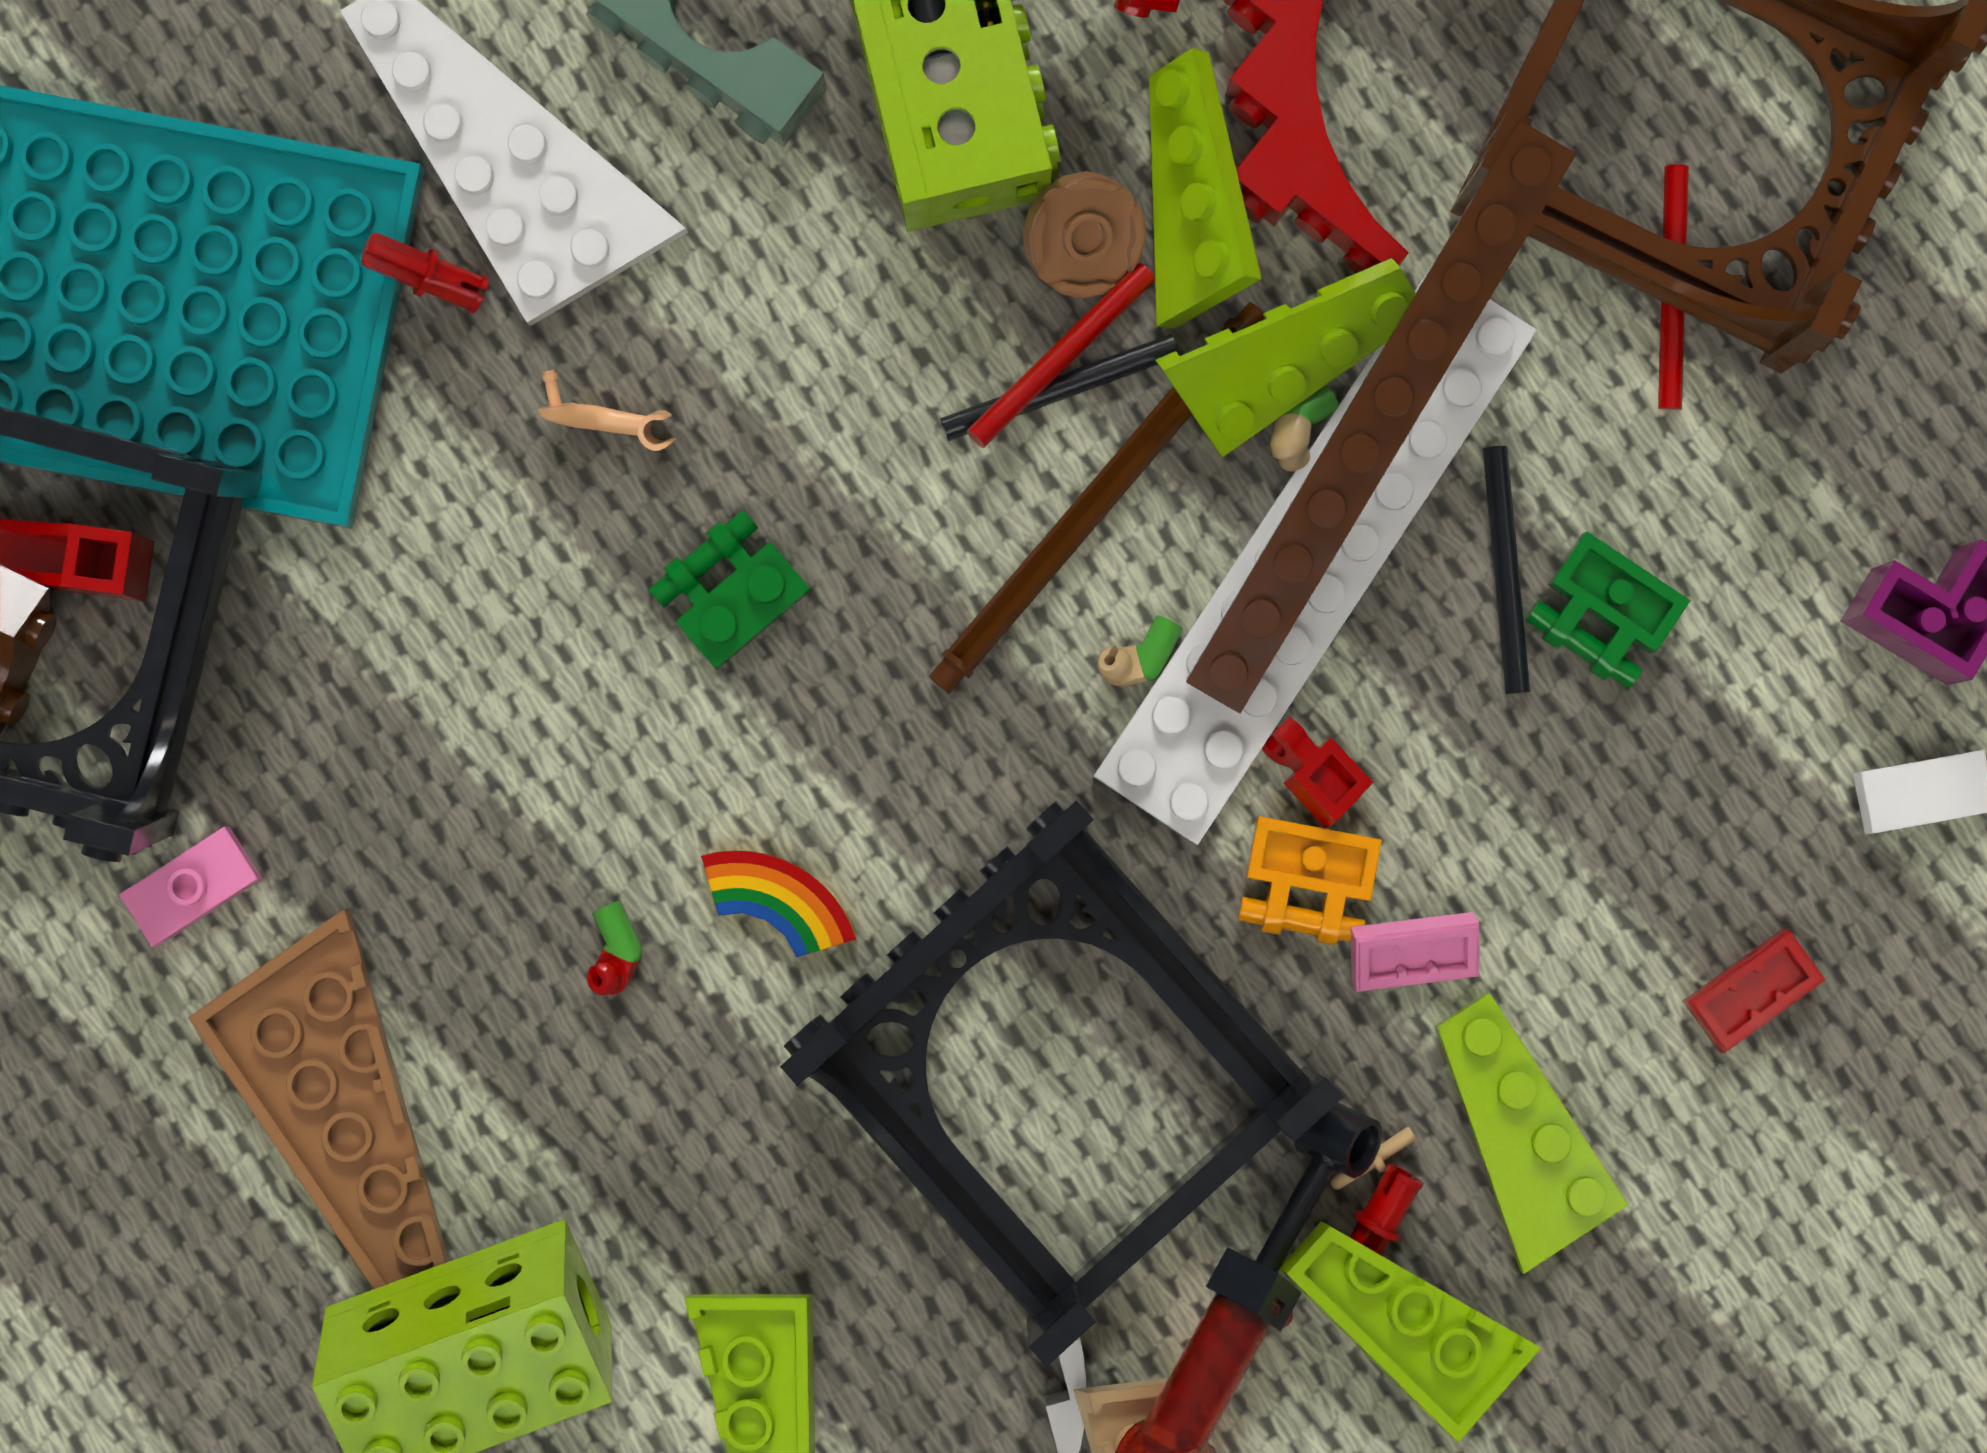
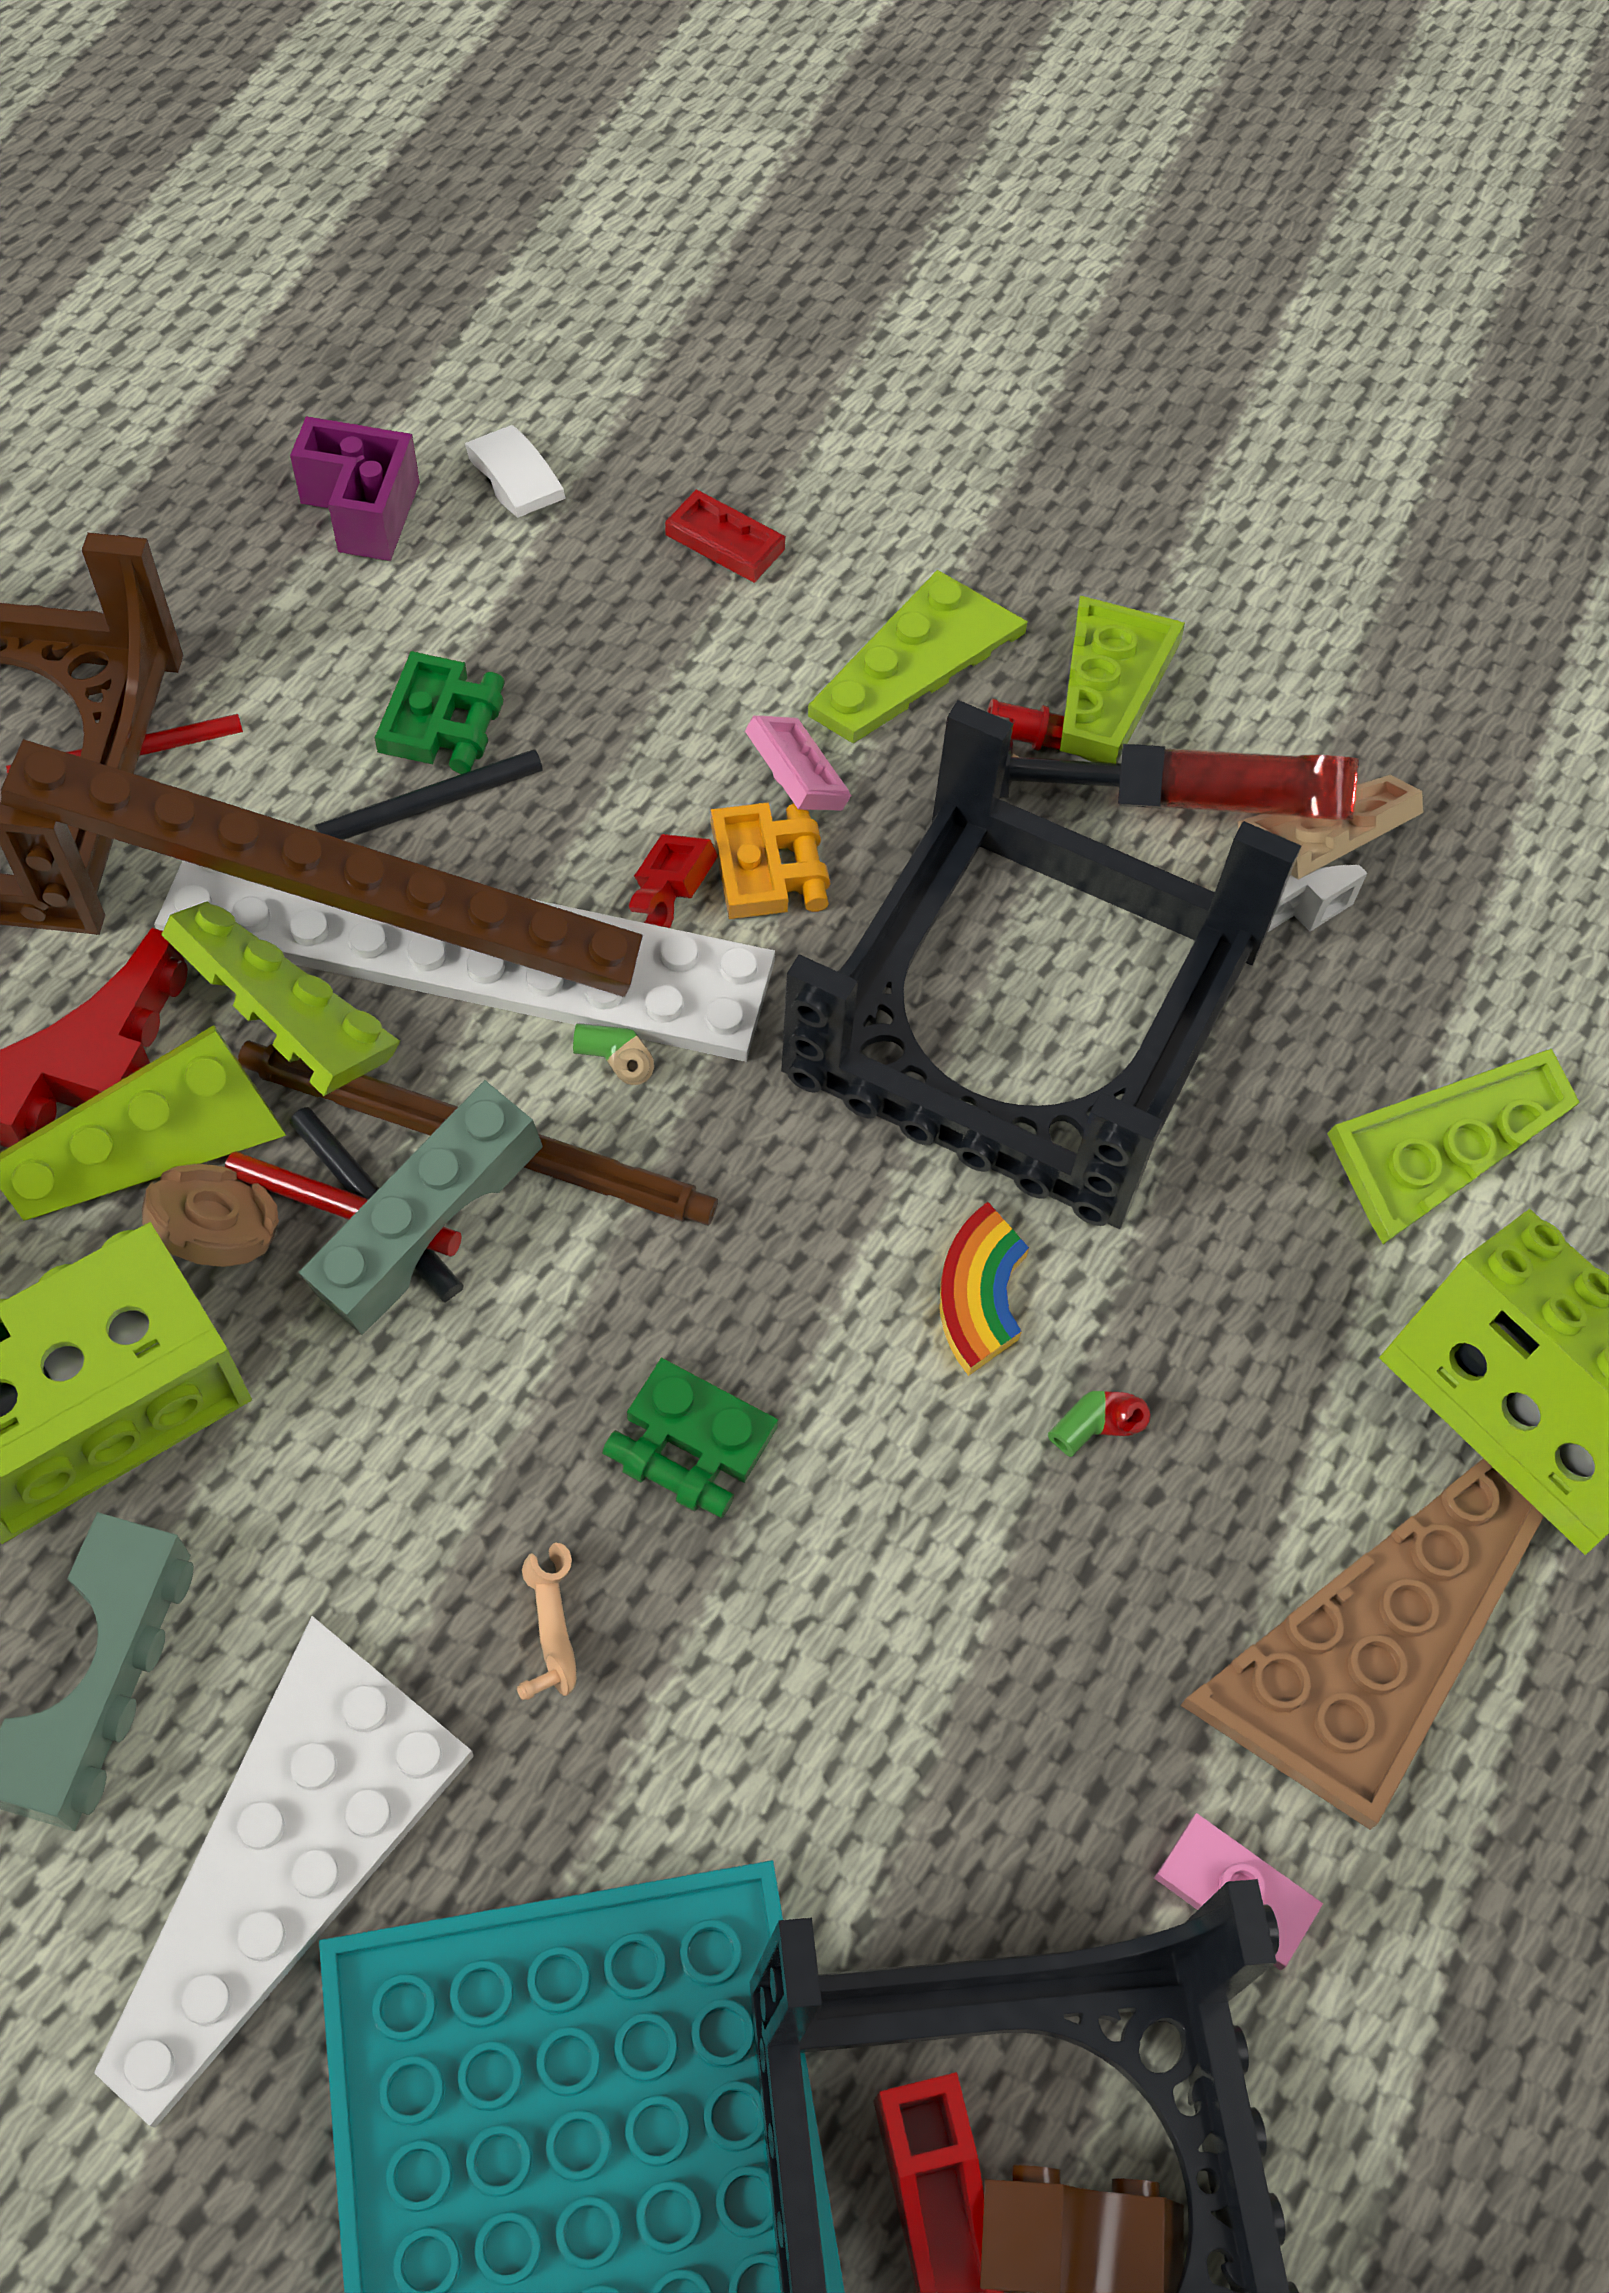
camera: 115 degrees left, 25 degrees down
(424, 272) = (449, 1880): red axle -> none
(1017, 420) = (379, 1246): none -> sand green arch
(1293, 429) = (359, 988): tan arm -> none

